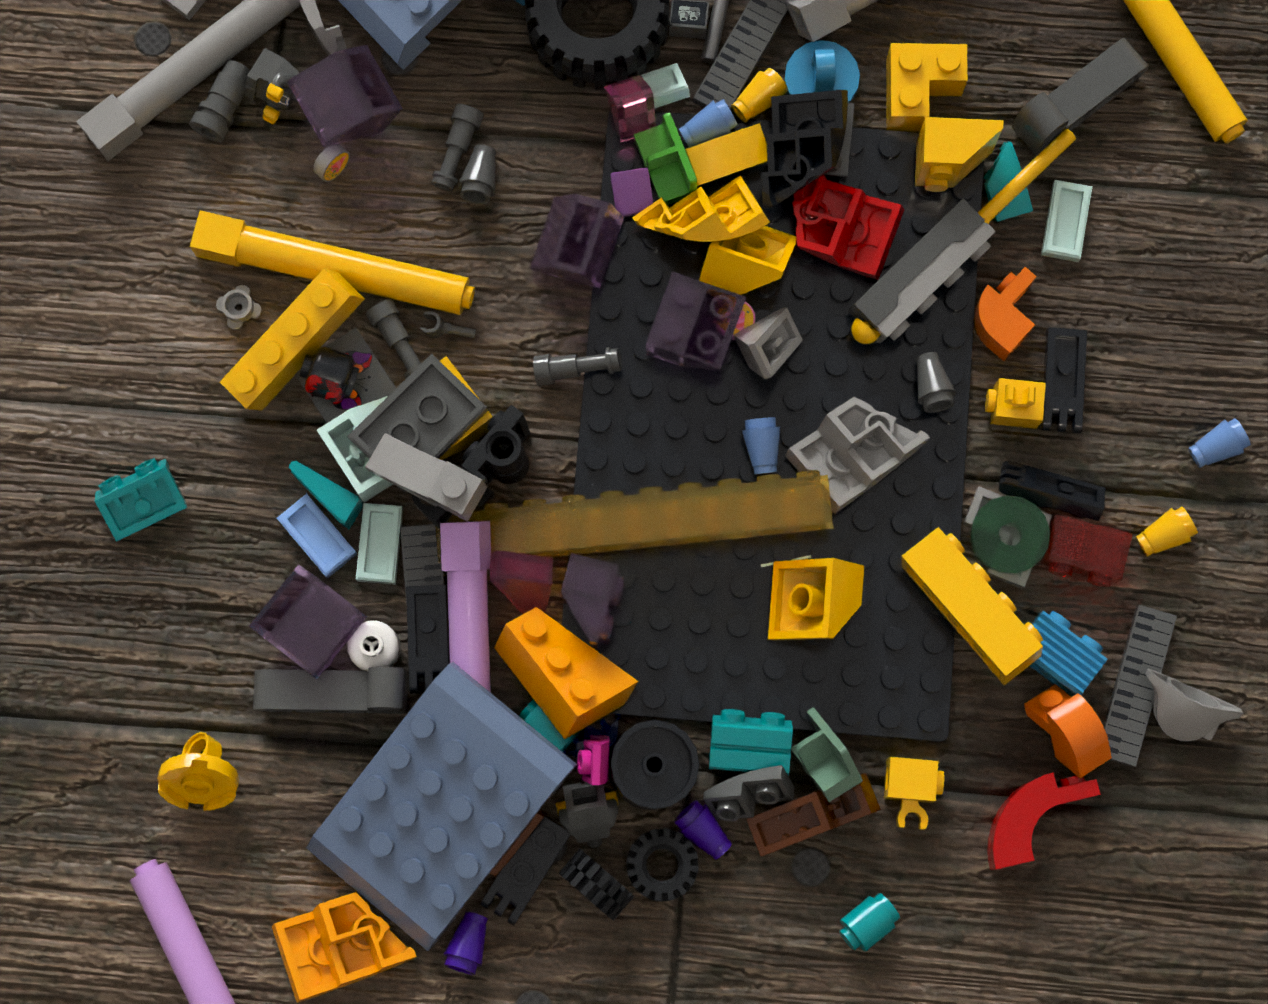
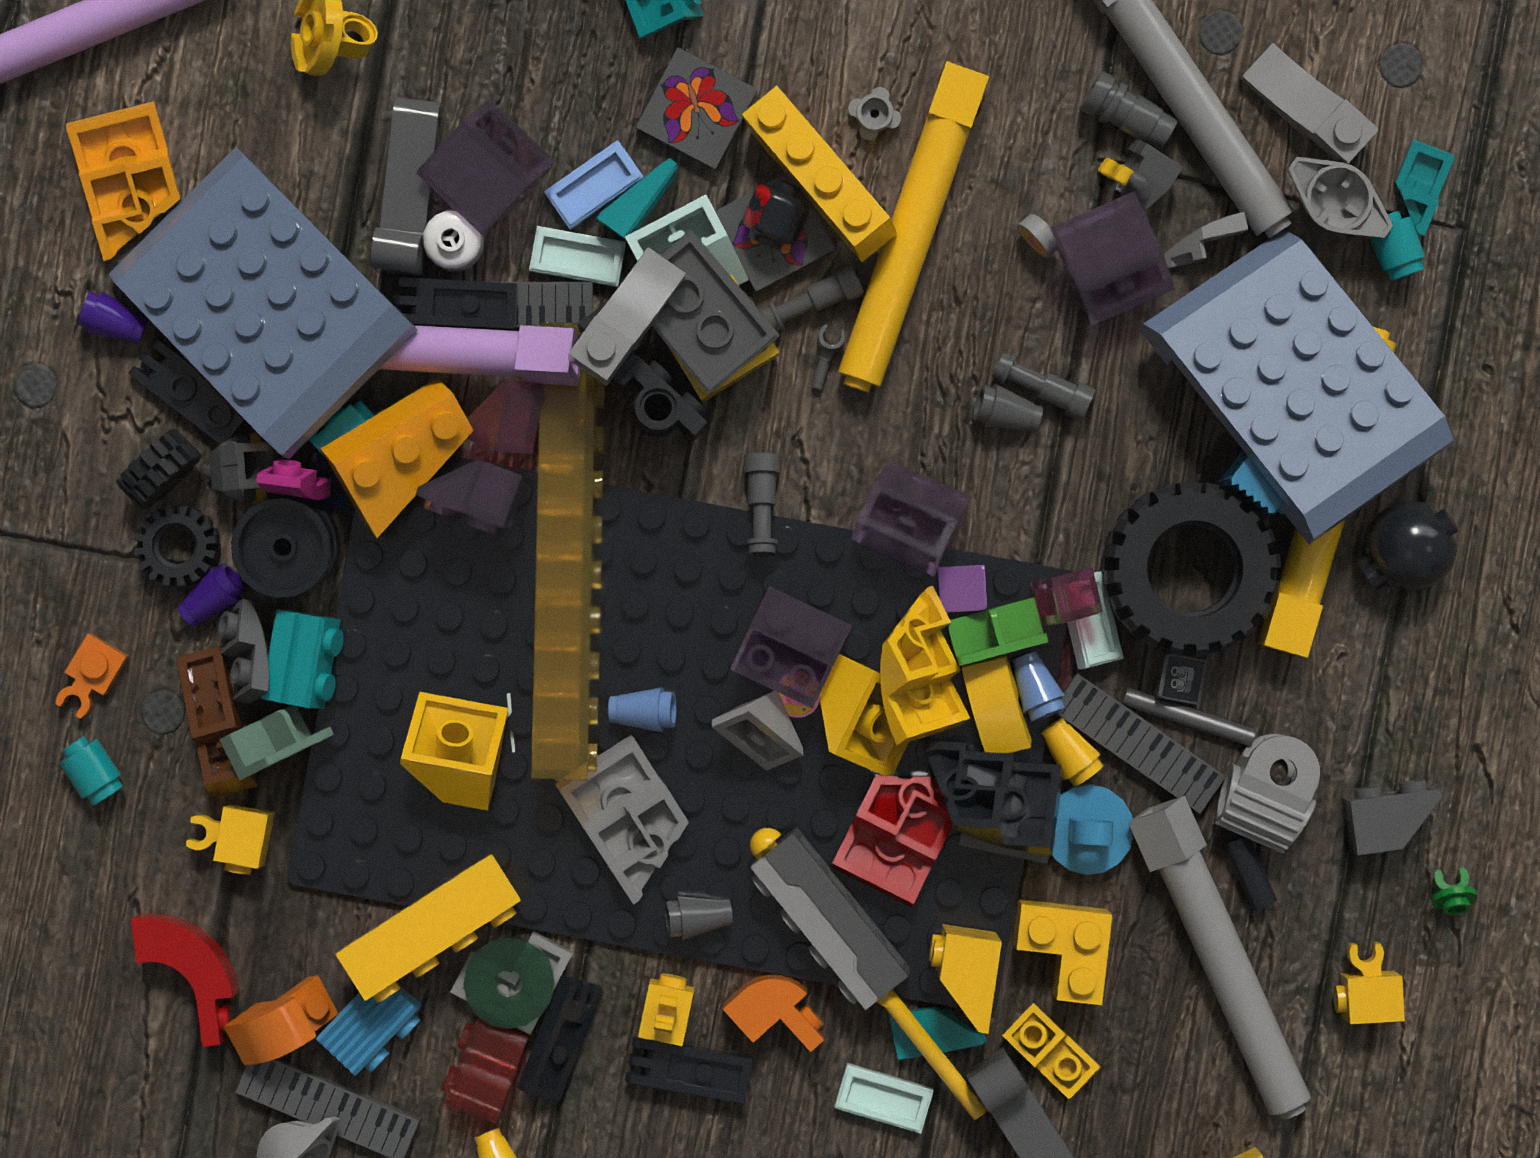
camera: 90 degrees right, 10 degrees up
(245, 455) = (696, 109): none -> tile
(778, 930) = (93, 668): none -> orange plate
(1010, 87) = (1051, 1051): none -> yellow slope

